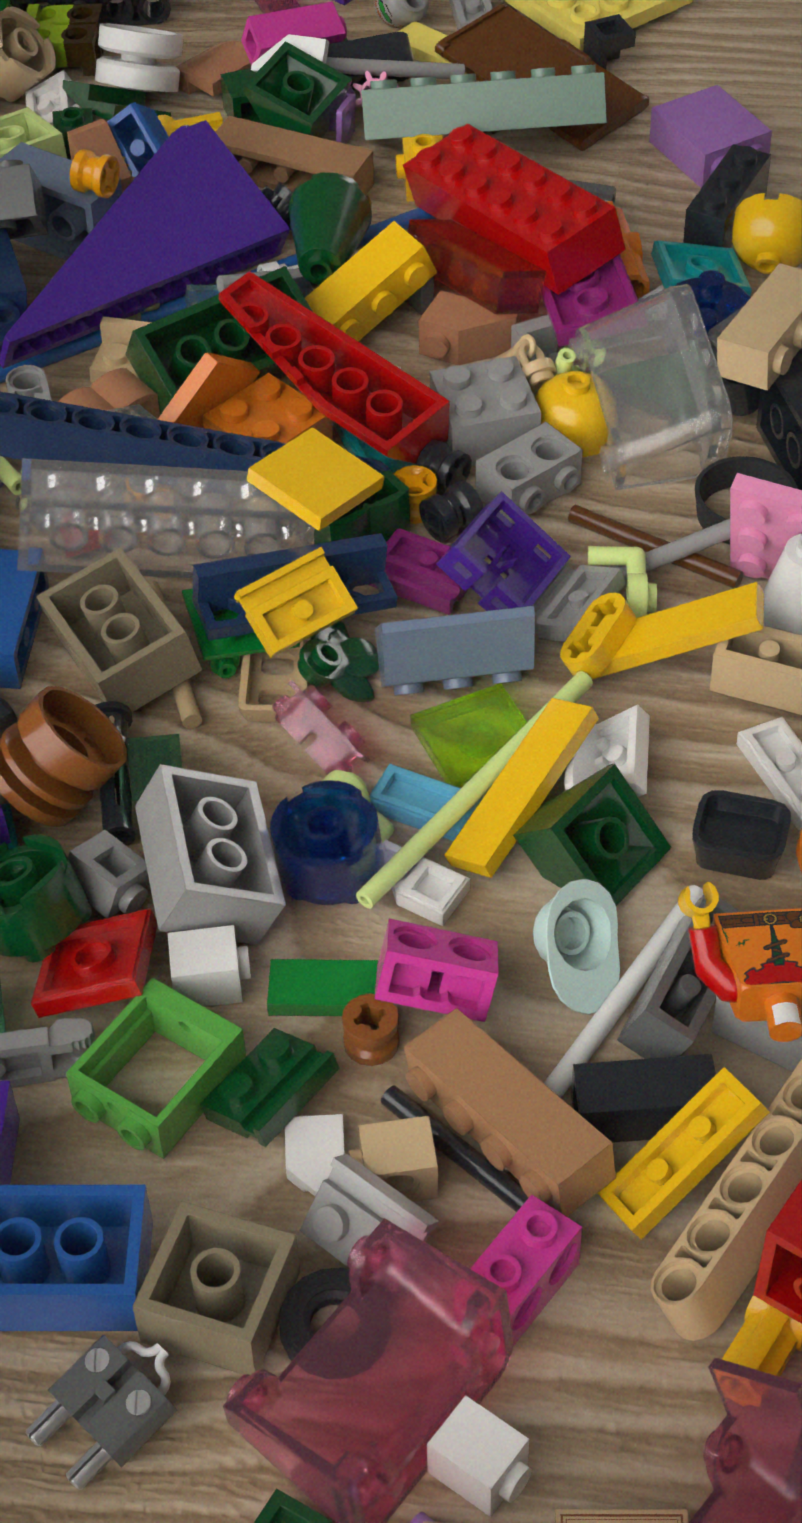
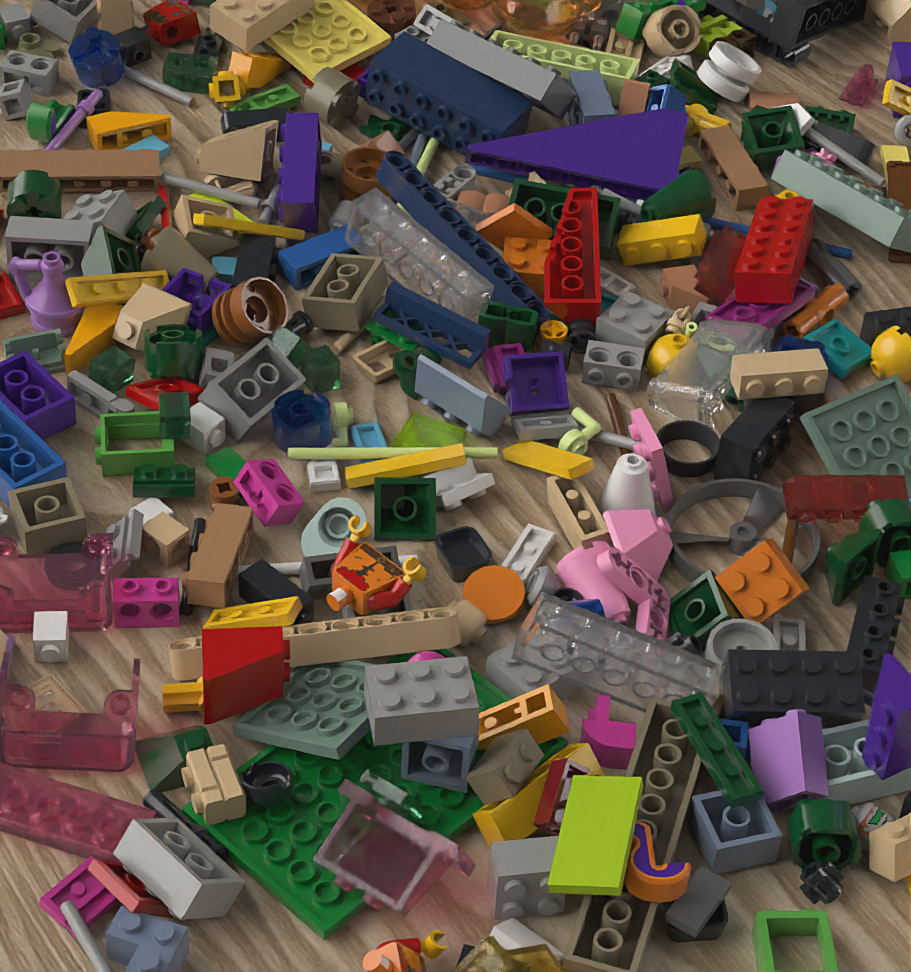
camera: 45 degrees right, 5 degrees down
(94, 173) = (597, 101): light orange wheel -> none
(189, 980) = (174, 415): none -> clear green brick
(232, 749) = (320, 369): none -> clear green brick
(295, 602) = (416, 328): yellow plate -> none
(308, 714) = (370, 377): clear pink hinge -> none
(313, 21) = (819, 106): dark pink brick -> none
(315, 478) = (487, 286): yellow tile -> none
(598, 635) = (524, 440): yellow beam -> none

